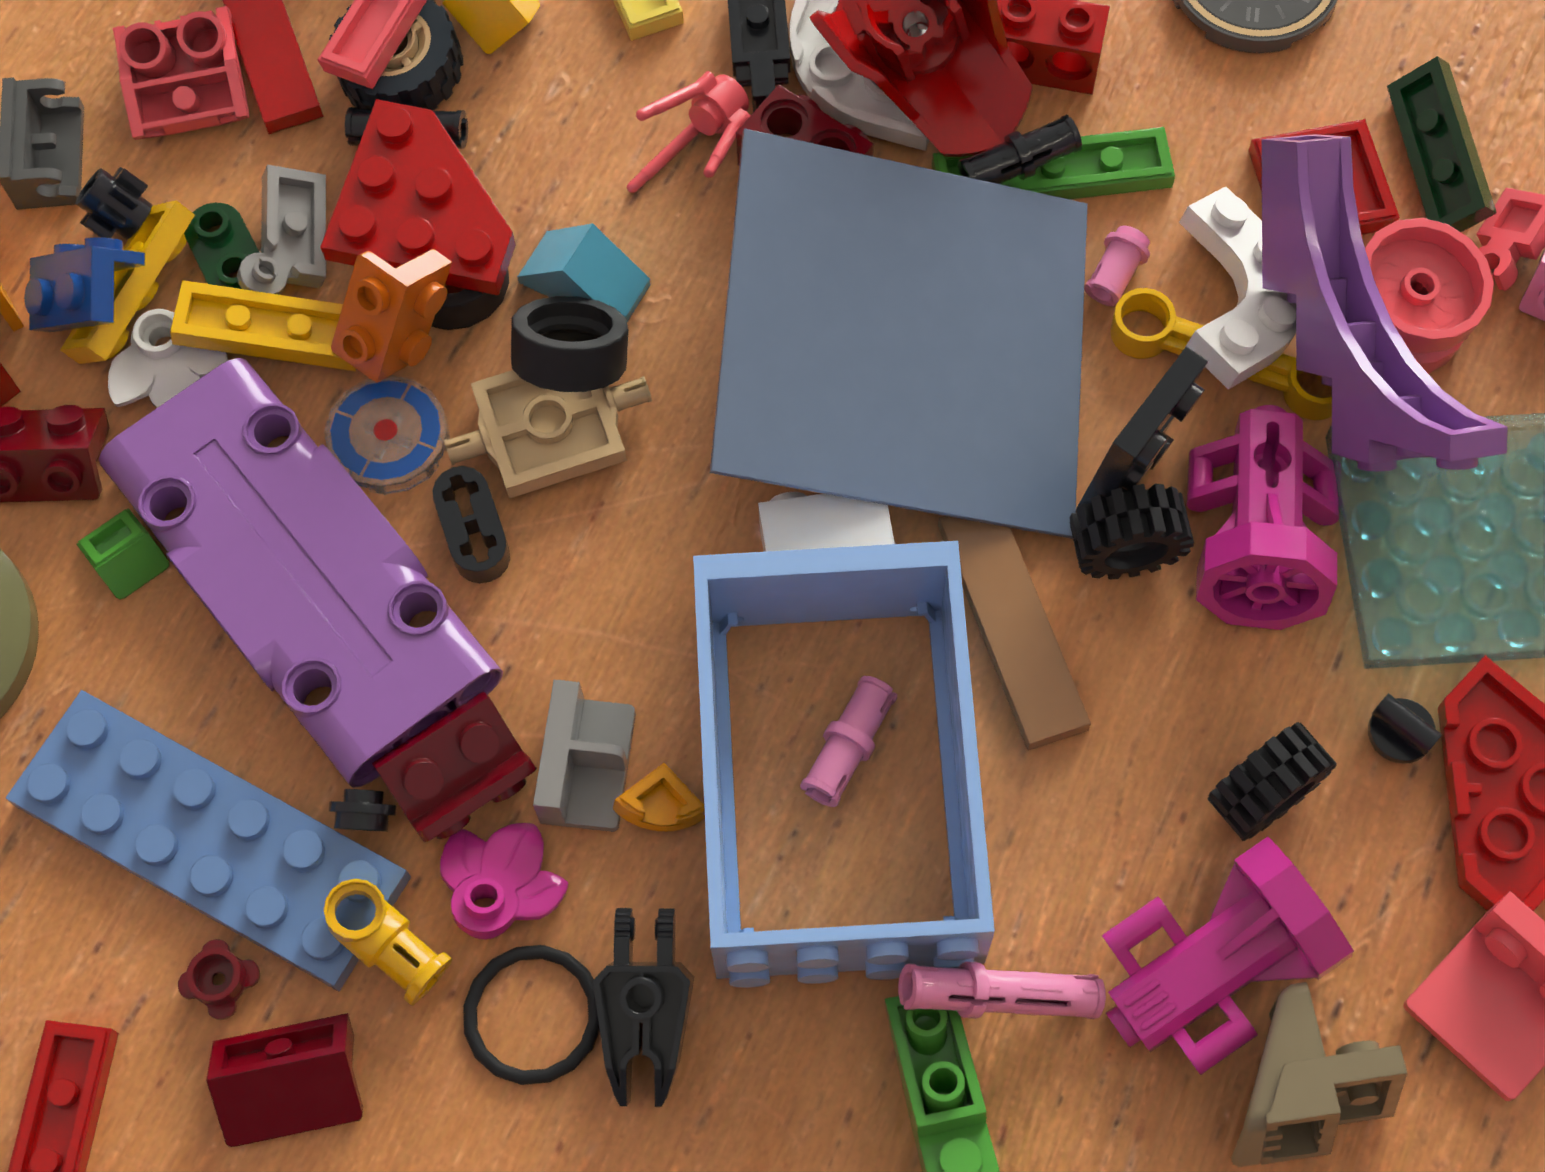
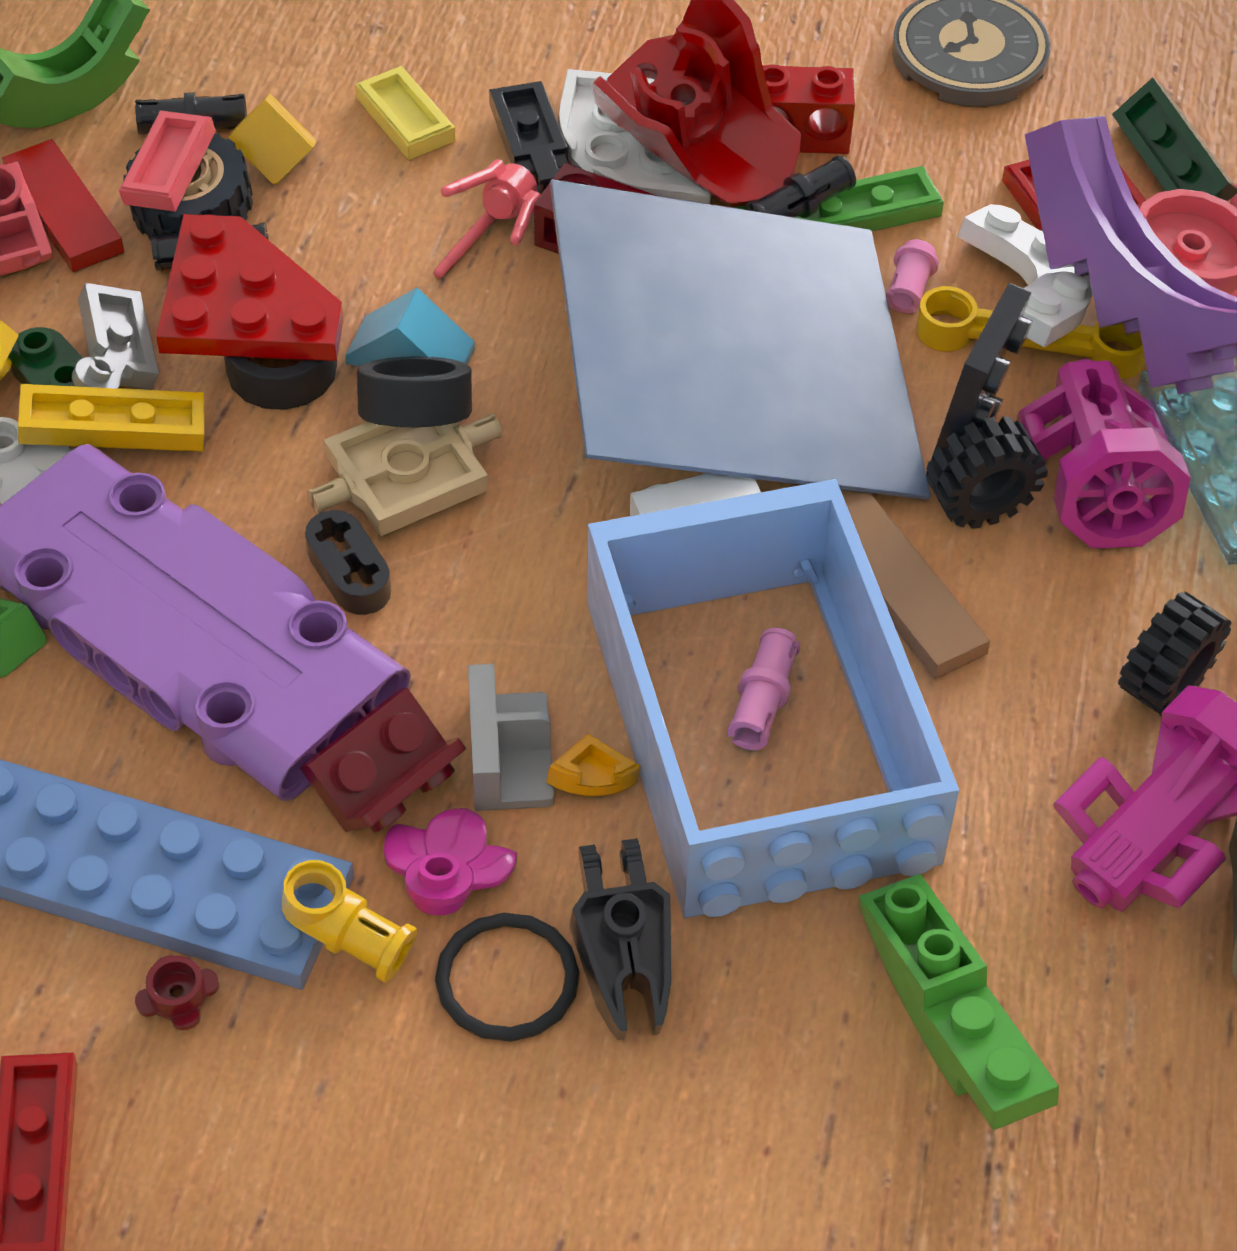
camera: 15 degrees left, 15 degrees down
(284, 1080) = (269, 1073): dark red panel -> none
(362, 811) = (295, 816): black plate -> none
(387, 434) = (252, 493): tile -> none
(390, 313) = (236, 380): orange bracket -> none
(976, 990) = (908, 863): bright pink pin -> none

